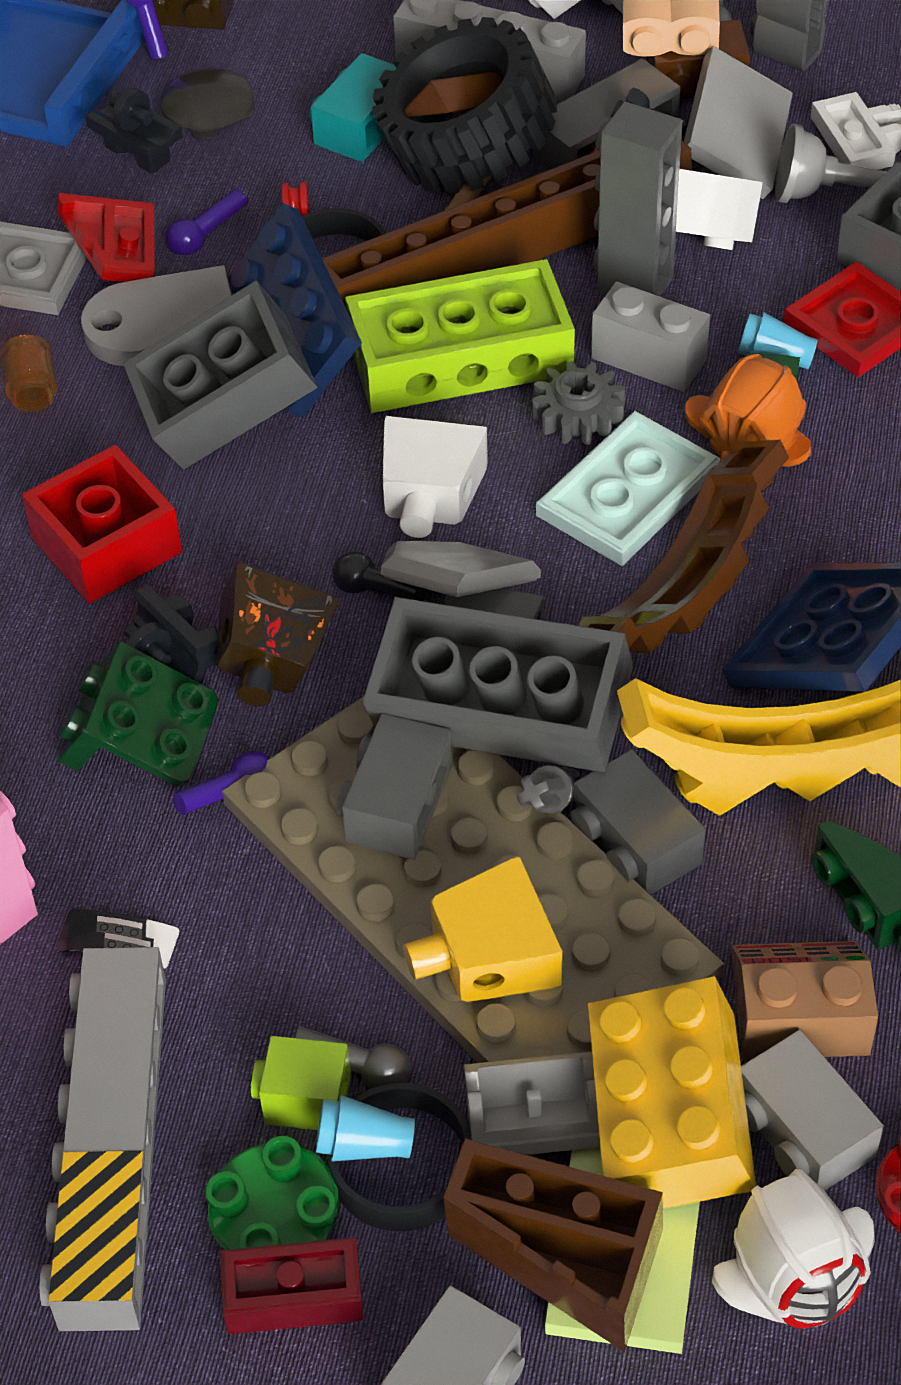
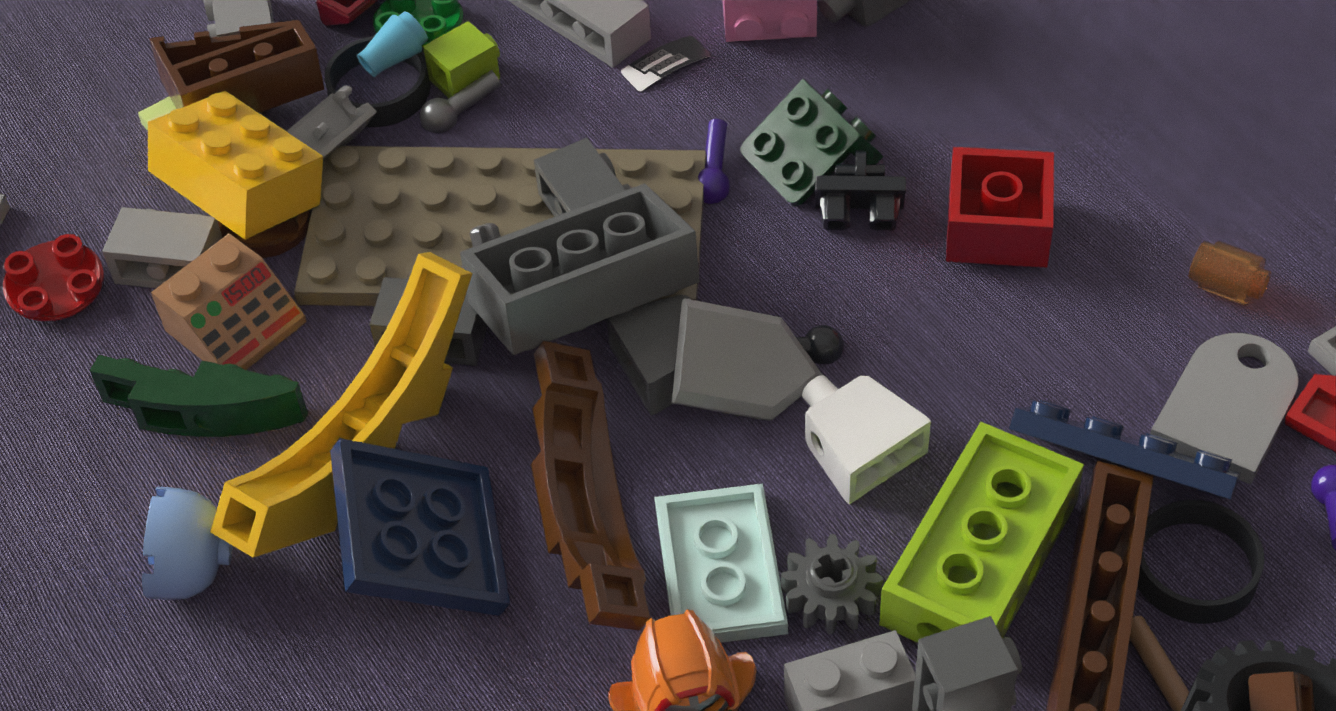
camera: 135 degrees right, 0 degrees up
(219, 375) = (1073, 339): dark grey brick -> none
(269, 631) = (798, 232): dark brown torso -> none
(296, 196) = (1294, 573): red bush -> none
(489, 937) = (428, 168): yellow torso -> none
(794, 1244) = (99, 177): white piece -> none

